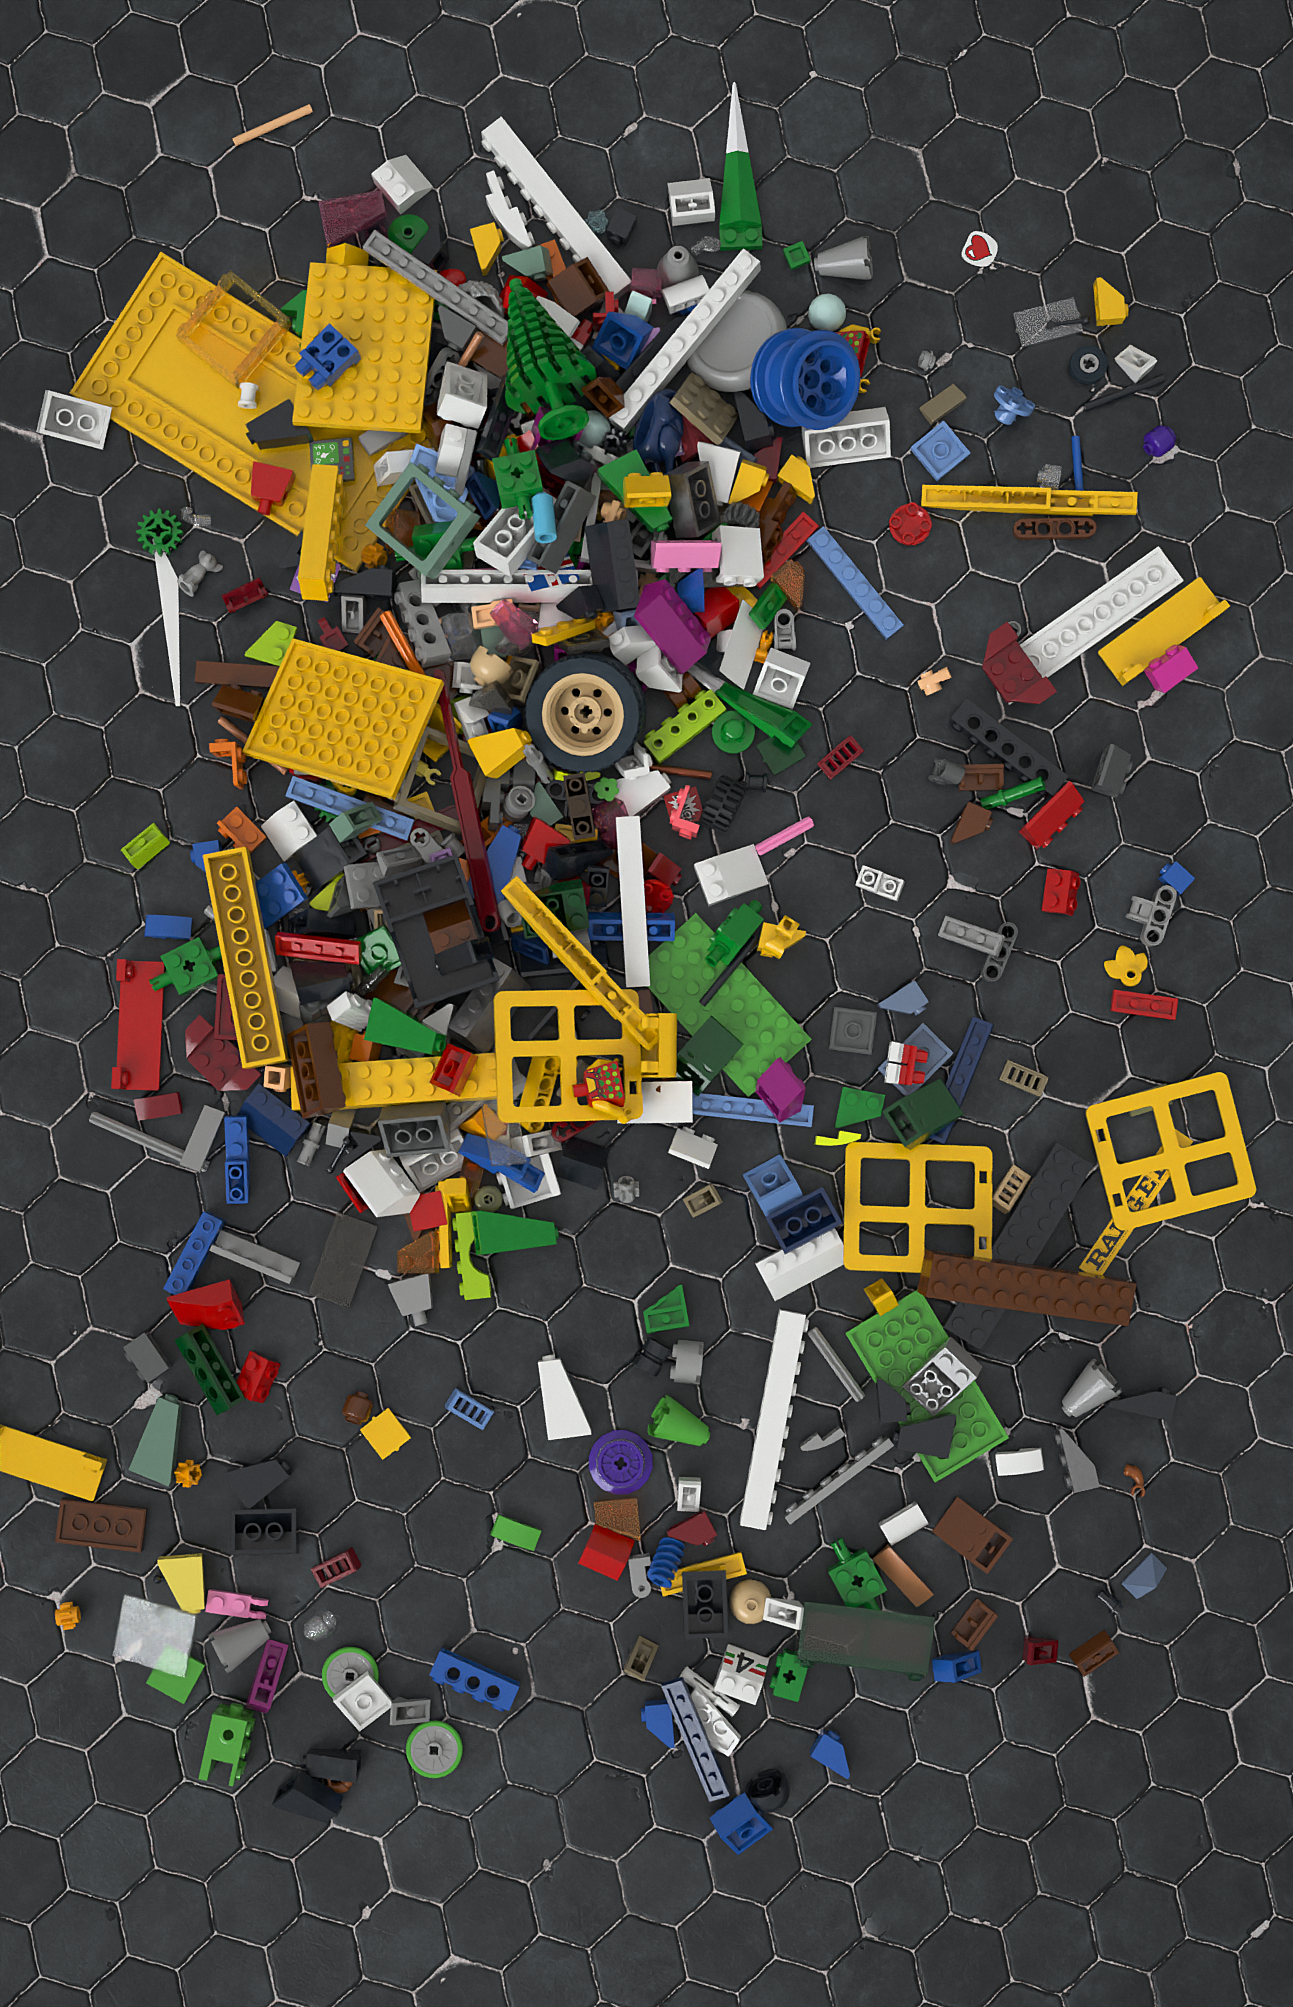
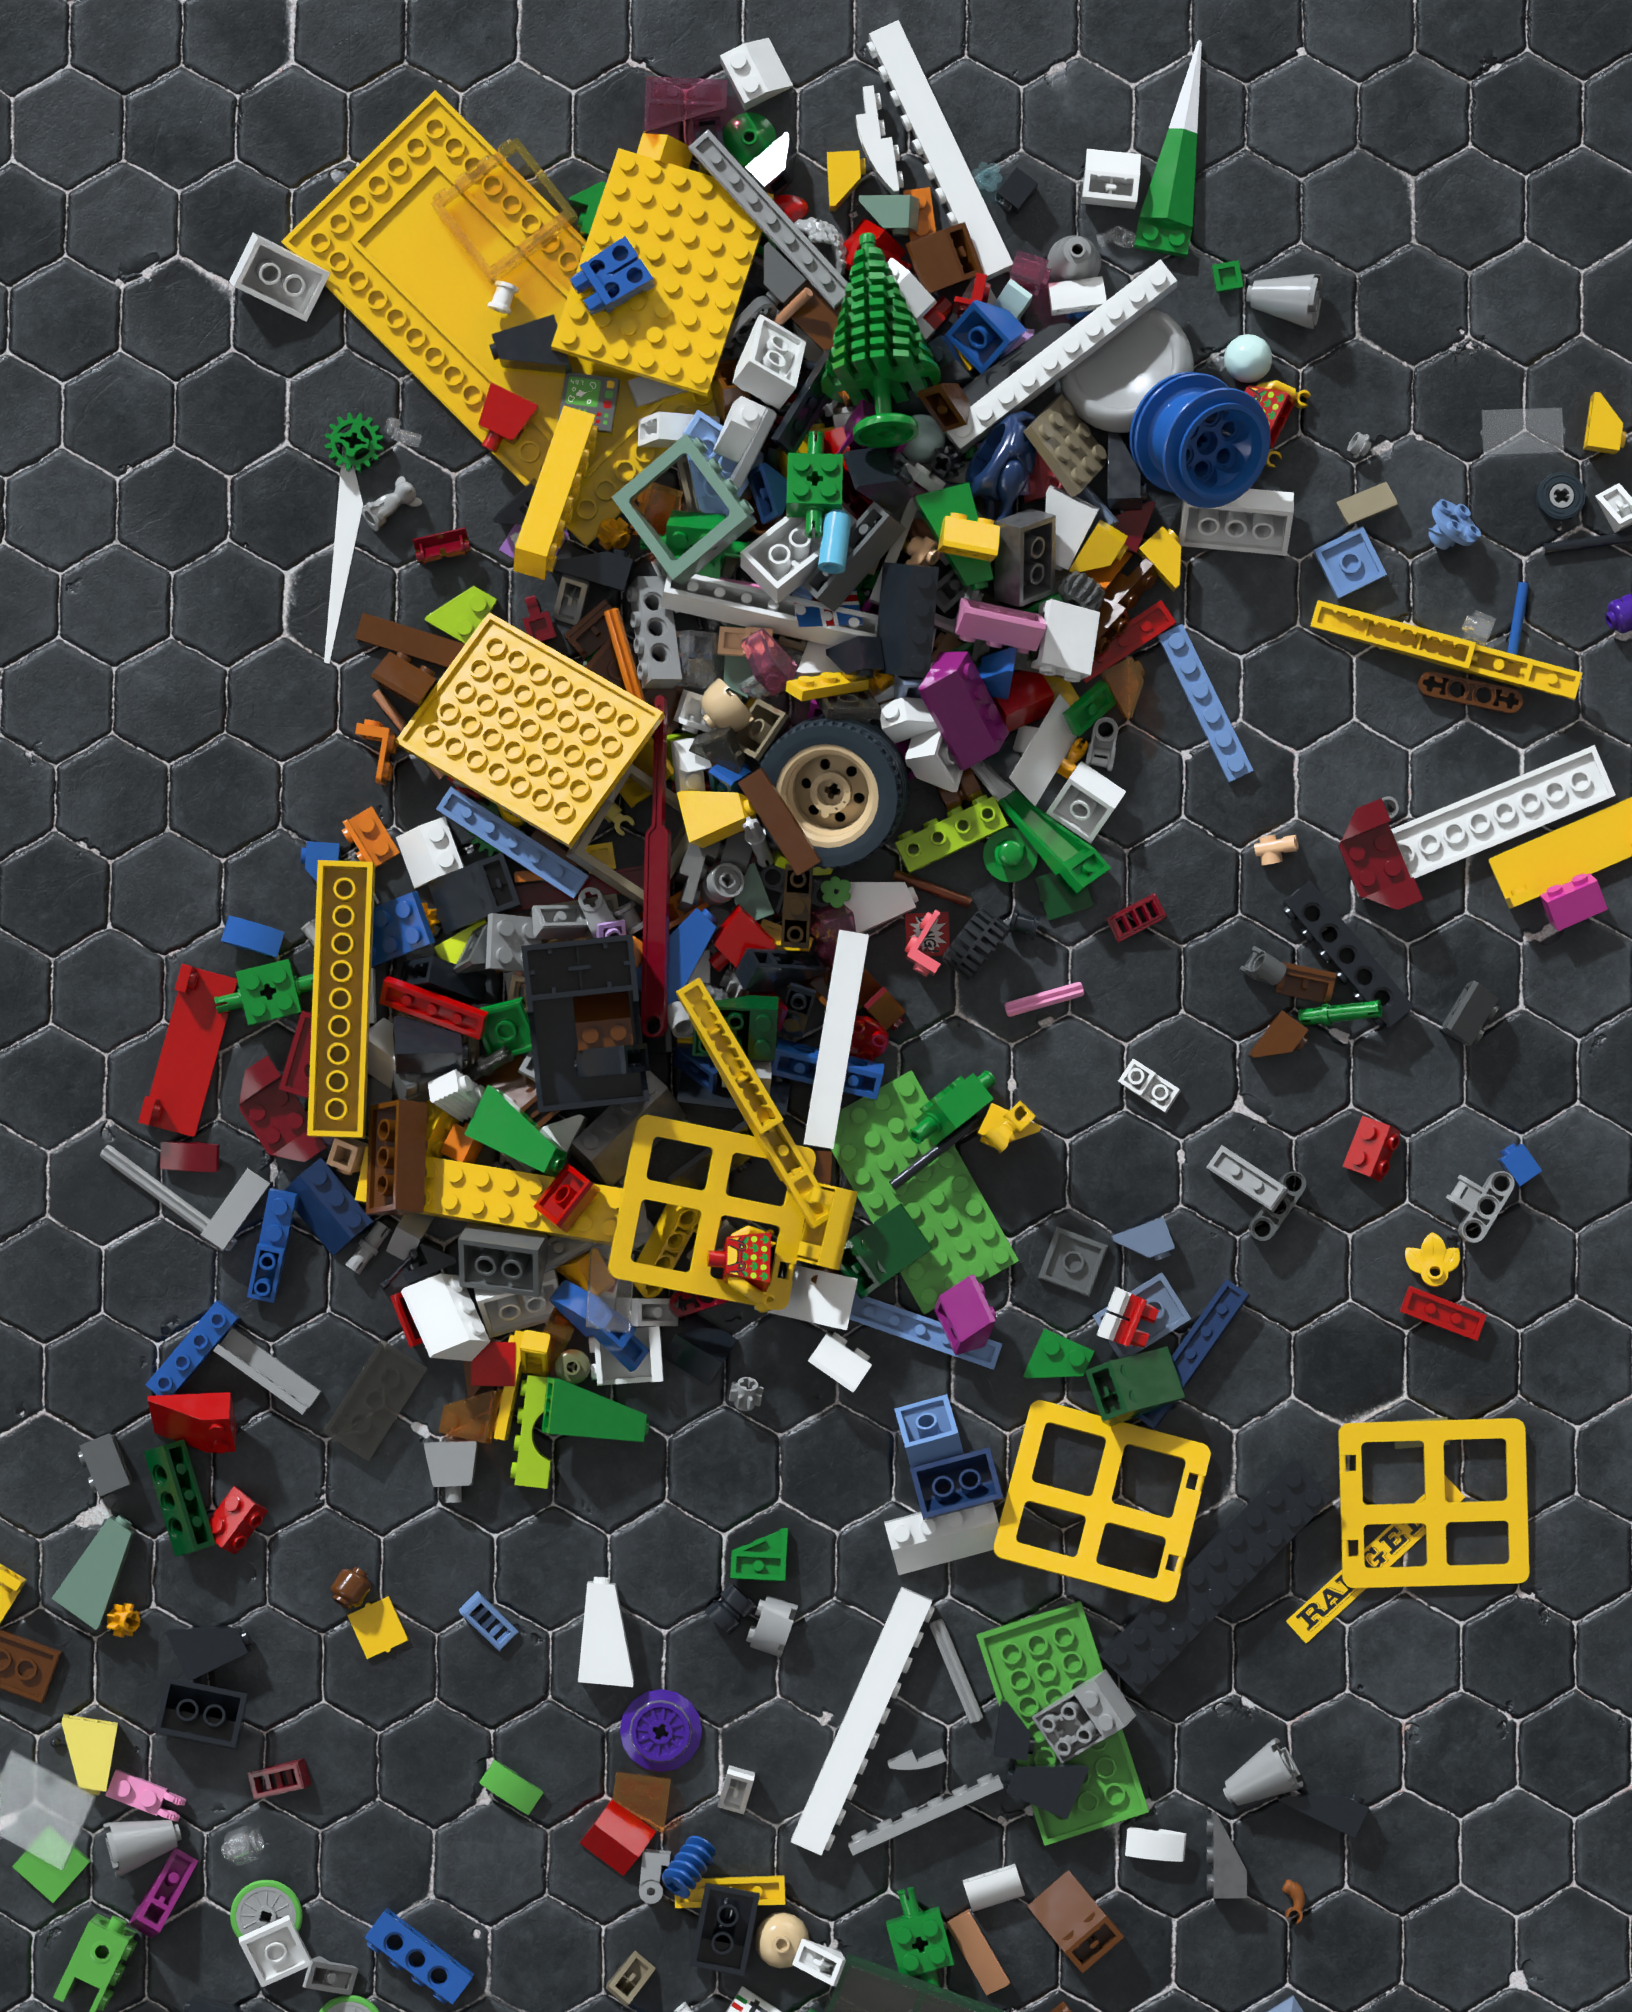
camera: 15 degrees right, 0 degrees up
(145, 846) = (246, 829): lime slope -> none
(355, 821) = (515, 862): sand green slope -> none
(374, 848) = (530, 898): light grey hinge -> none
(550, 742) = (779, 821): none -> reddish brown tile
(635, 765) = (878, 869): white bracket -> none
(677, 1423) = (742, 1699): bright green cone -> none
(694, 1530) = (733, 1835): dark red slope -> none
(702, 1200) = (837, 1429): dark tan slope -> none
(730, 874) = (966, 1032): white slope -> none
(842, 1138) = (1029, 1392): neon yellow slope -> none
(881, 1297) = (1031, 1600): yellow slope -> none
(910, 524) = (1291, 646): red dish -> none
(980, 249) = (1459, 320): sticker -> none
(998, 1203) = (1205, 1520): tan slope -> none
(1026, 1287) = (1212, 1630): reddish brown brick -> none
(1040, 1087) = (1291, 1383): dark tan slope -> none
(1050, 324) = (1526, 435): black hinge -> none
(1053, 816) = (1383, 1052): red slope -> none

